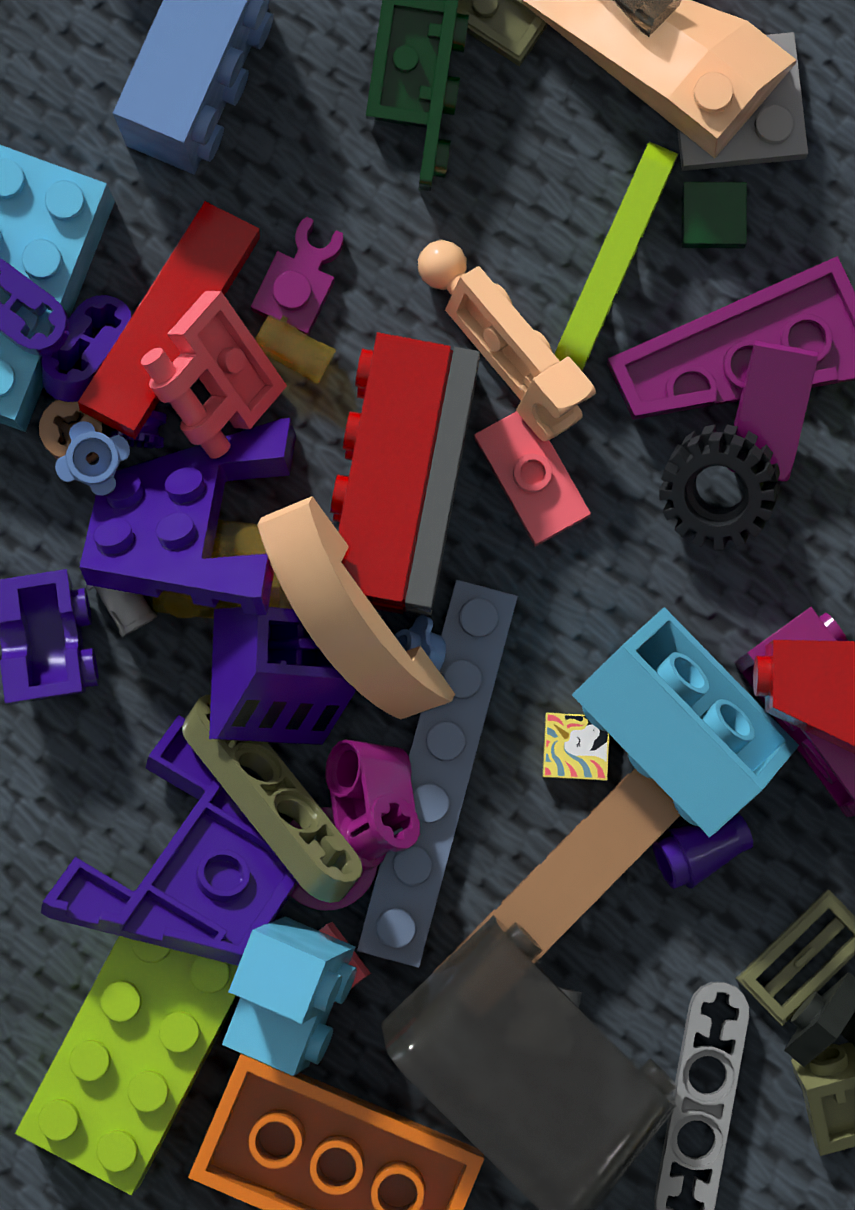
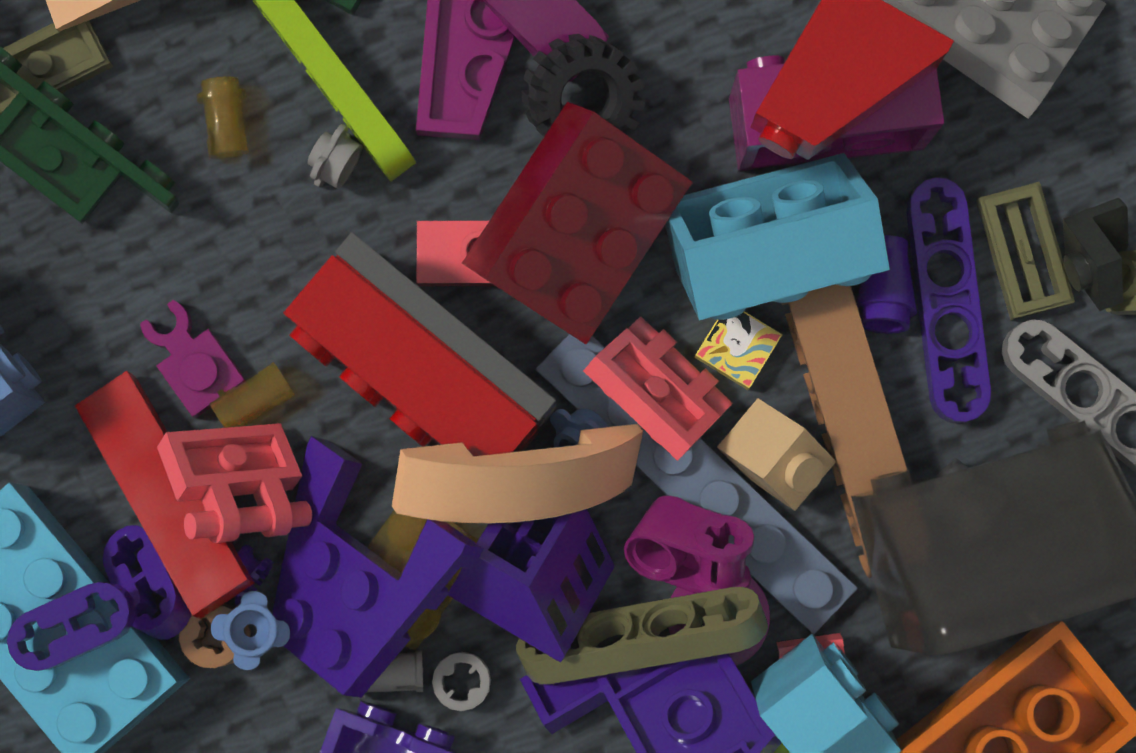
camera: 60 degrees left, 0 degrees up
(143, 684) = (447, 667): none -> light grey bush
(496, 830) = (776, 454): none -> tan brick
(498, 694) = (658, 387): none -> coral plate
(517, 352) = (365, 205): light nougat plate -> none
(527, 186) = (224, 116): none -> clear yellow pin
(544, 301) = (334, 157): none -> light grey plate
(600, 542) = (577, 221): none -> dark red brick
(724, 917) = (955, 300): none -> dark purple beam

